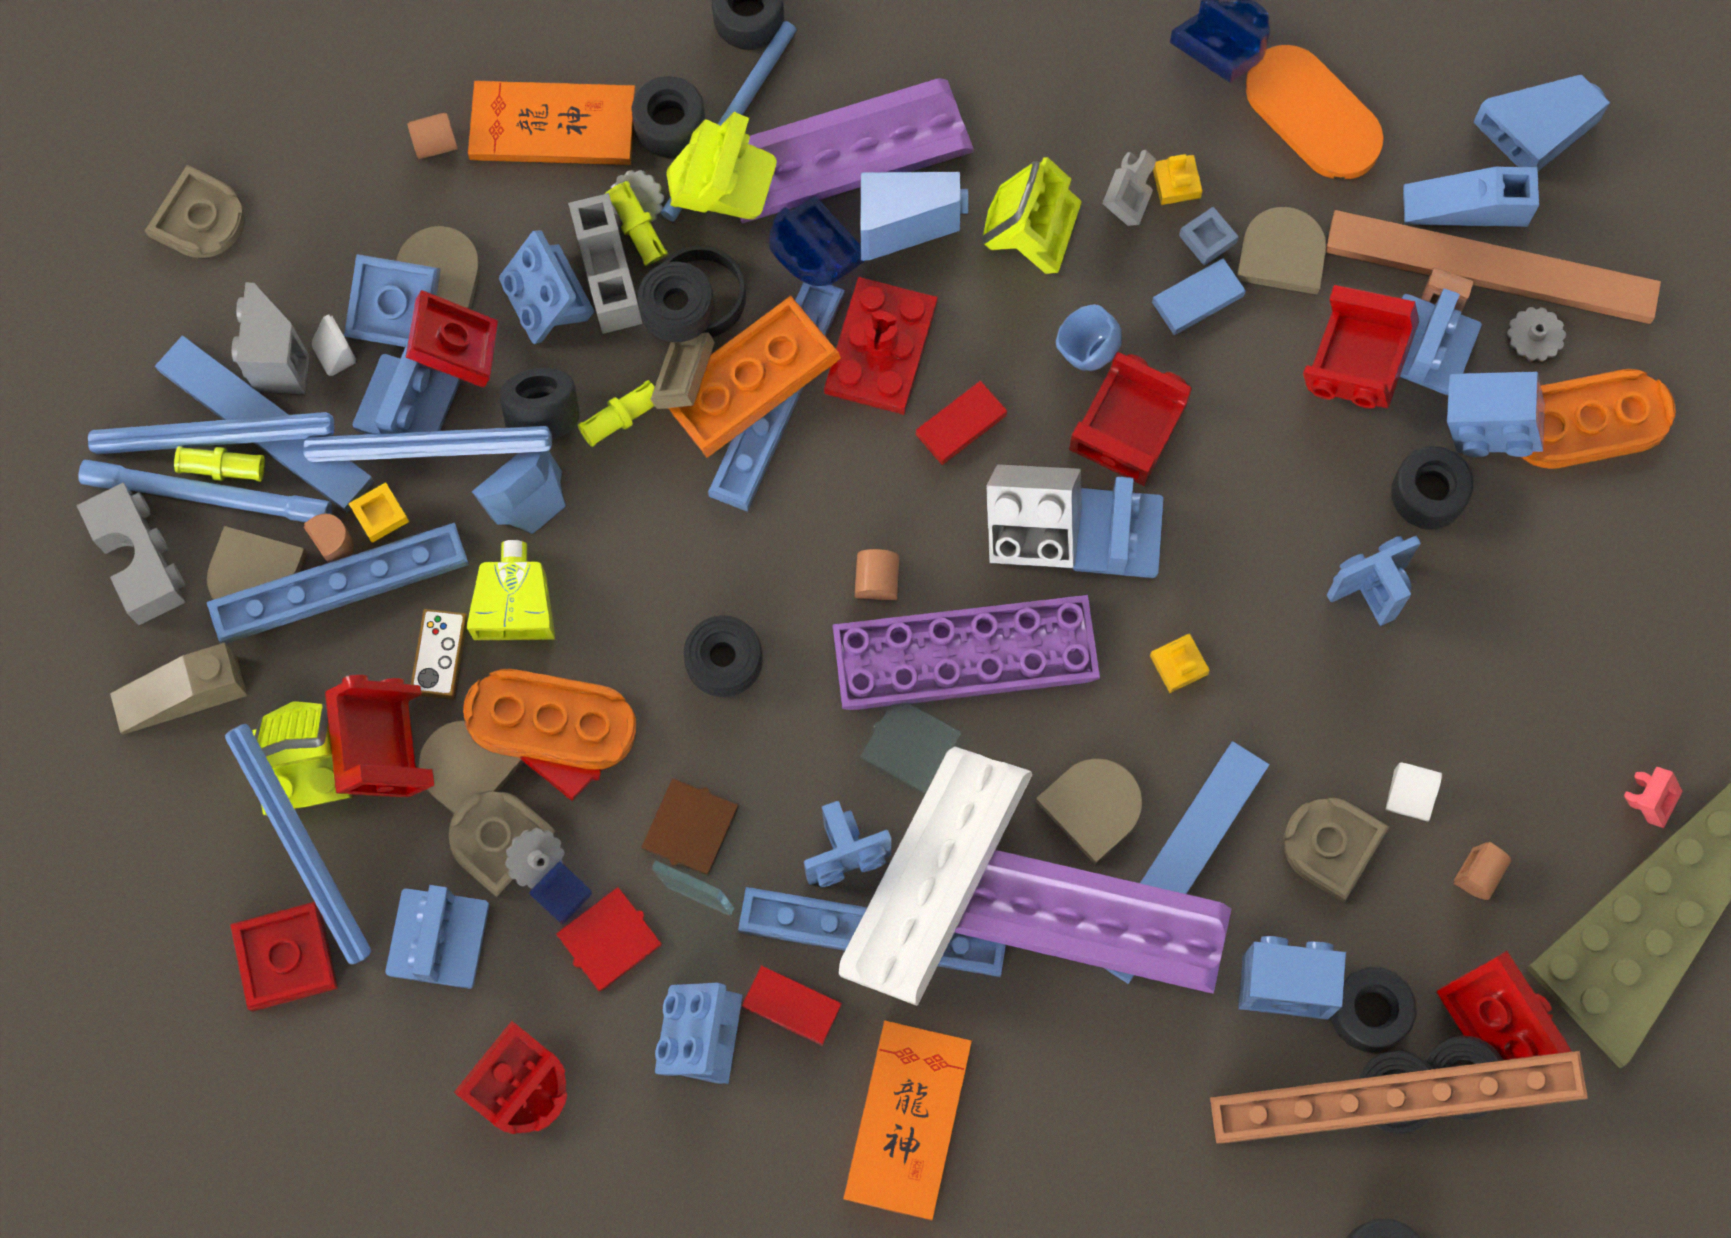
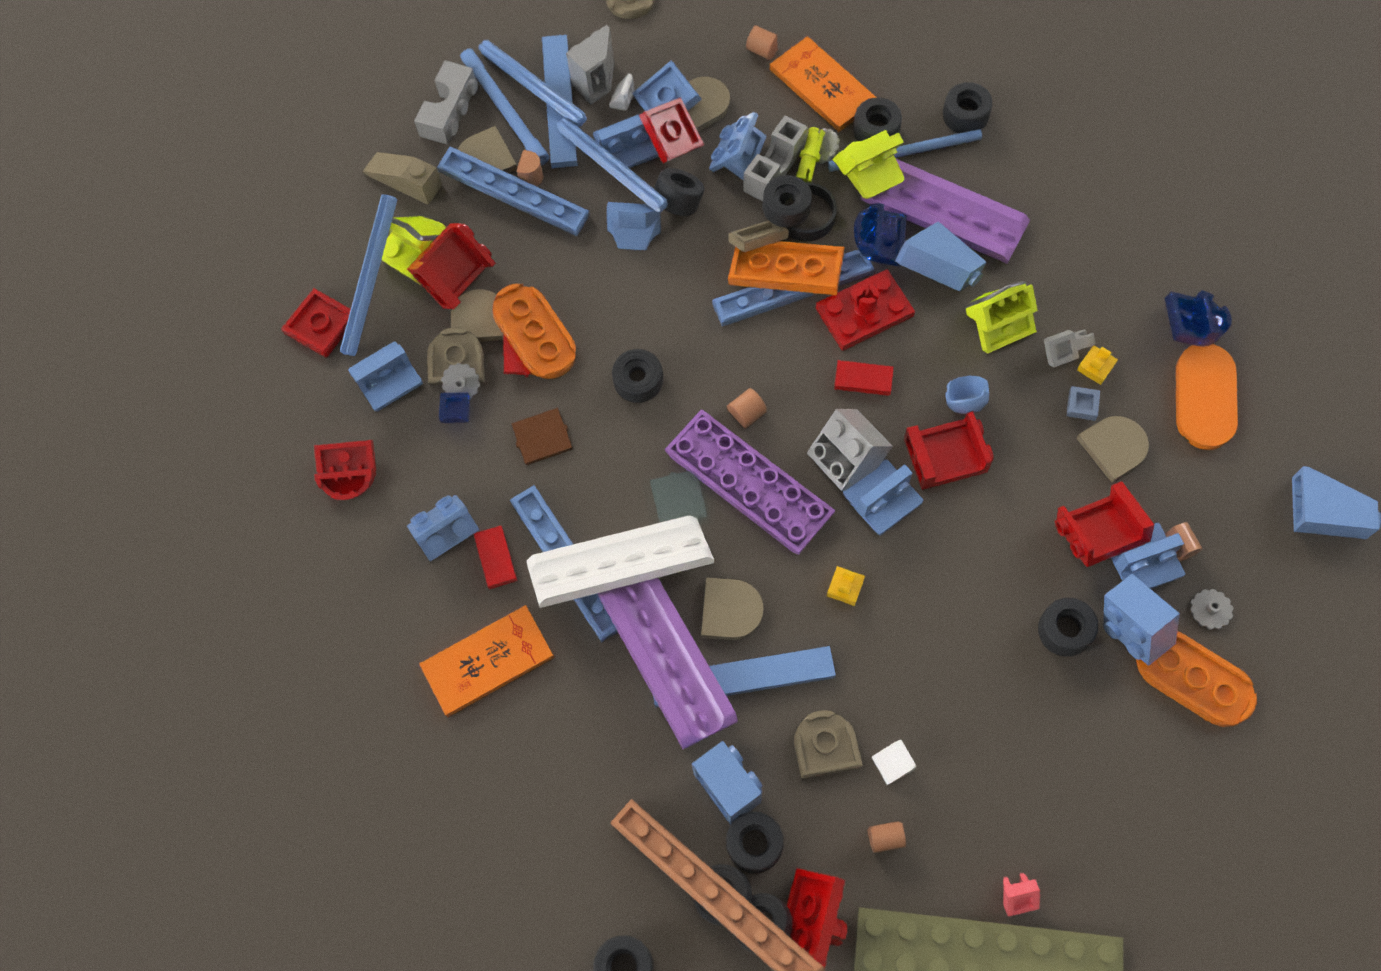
camera: 50 degrees right, 5 degrees down
(219, 463) = (522, 99): neon yellow pin -> none
(378, 512) = (560, 175): yellow tile -> none
(439, 653) = (521, 260): tile -> none
(511, 598) = (575, 264): neon yellow torso -> none
(609, 939) = (453, 449): red piece -> none
(617, 414) = (709, 230): neon yellow pin -> none
(693, 888) = (506, 458): clear light blue piece -> none
(847, 850) = (591, 508): medium blue bracket -> none
(1198, 296) = (1047, 427): medium blue tile -> none
(1378, 578) = (989, 637): medium blue bracket -> none
(1474, 198) = (1248, 510): medium blue slope -> none
(1494, 266) = (1226, 557): nougat tile -> none

